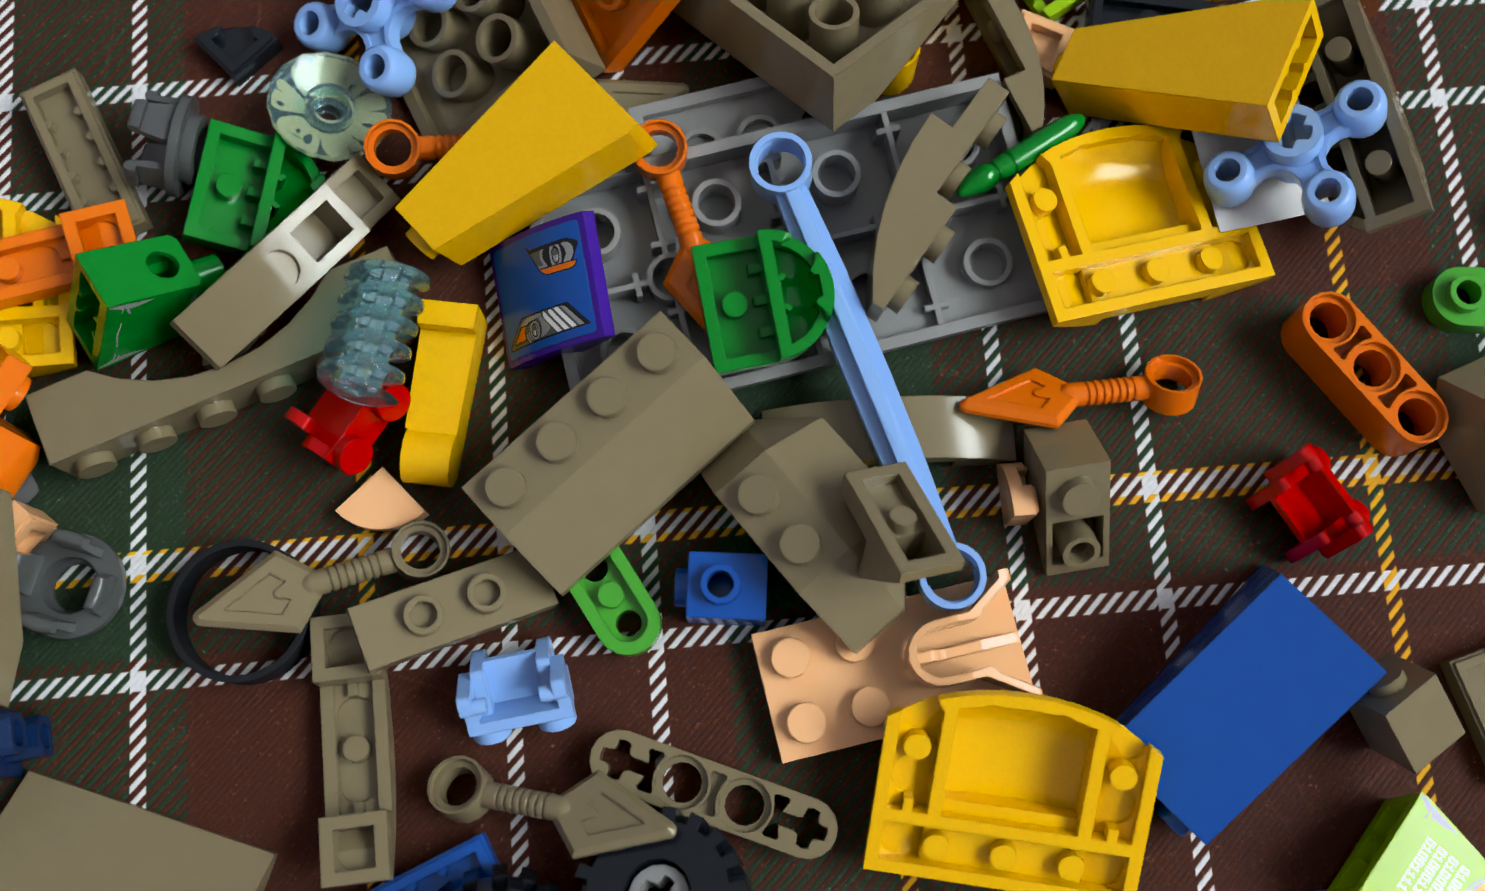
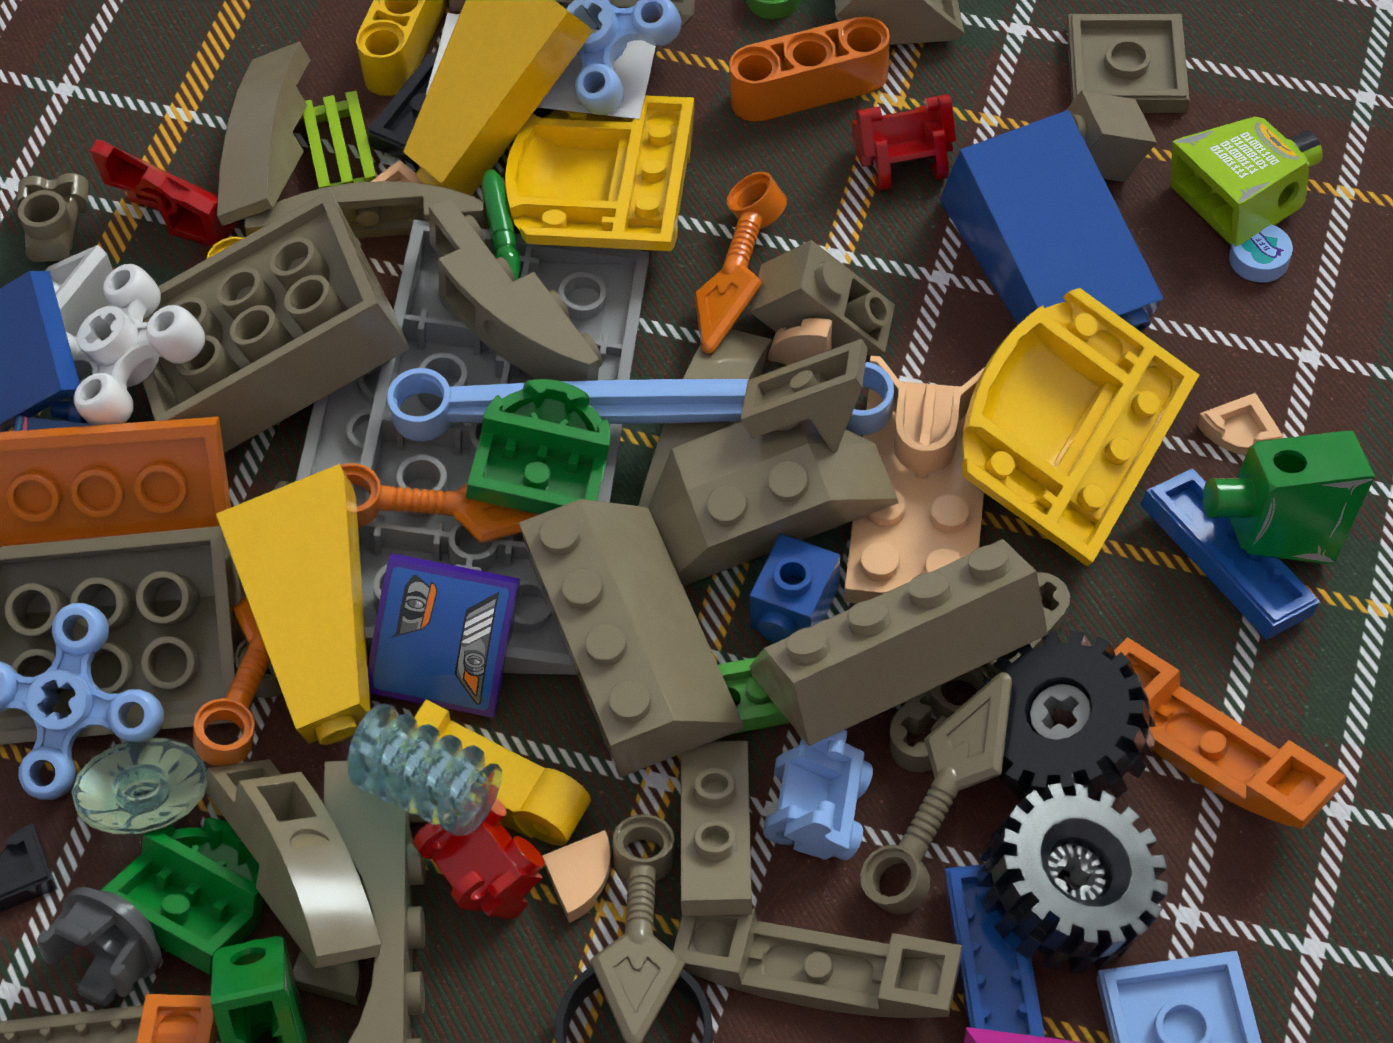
camera: 65 degrees left, 20 degrees down
(673, 713) = (903, 642): none -> dark tan slope

